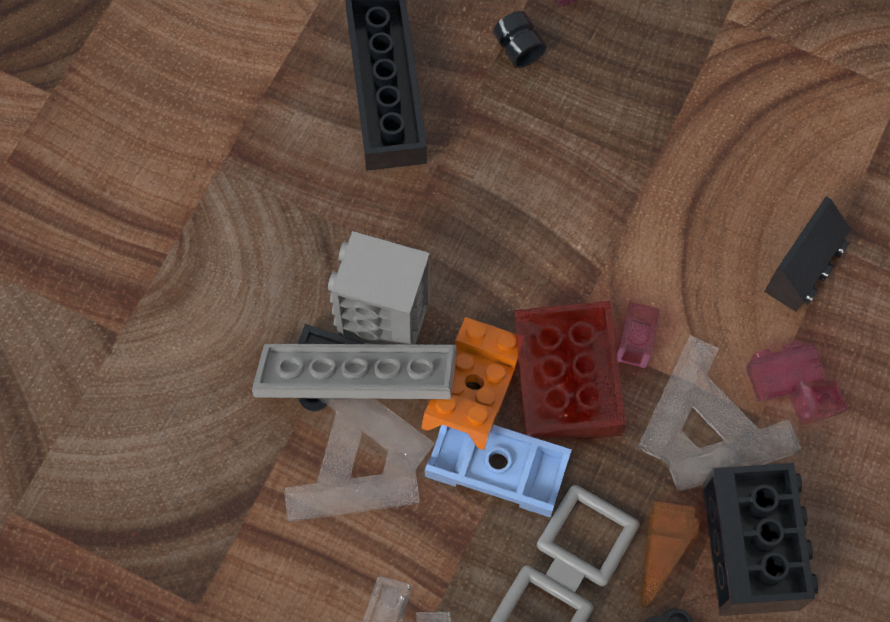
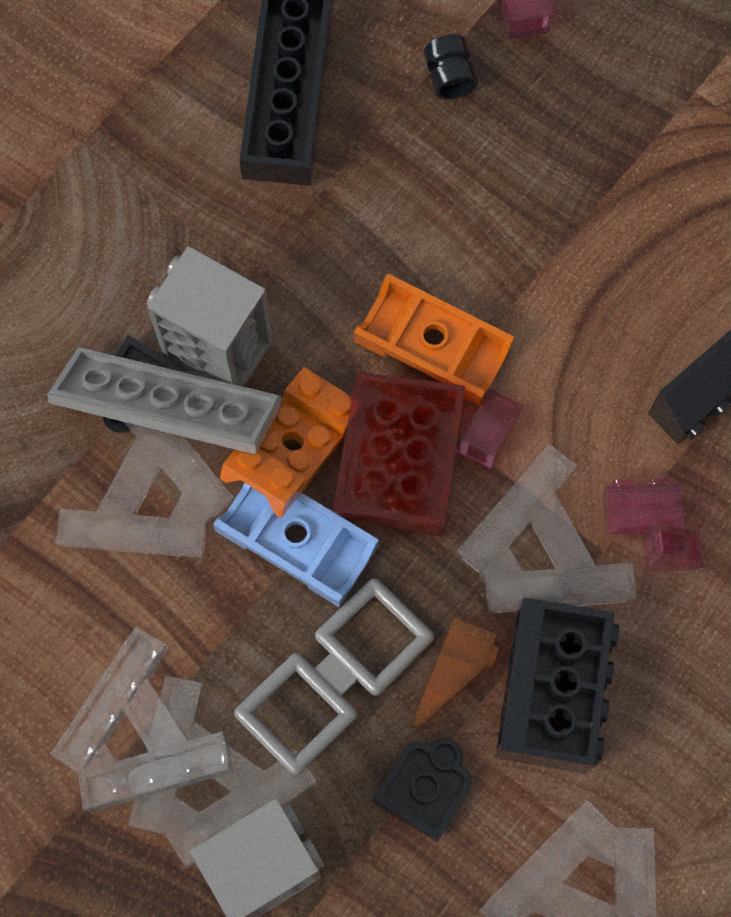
camera: 15 degrees right, 5 degrees up
(537, 258) = (466, 356): none -> orange piece

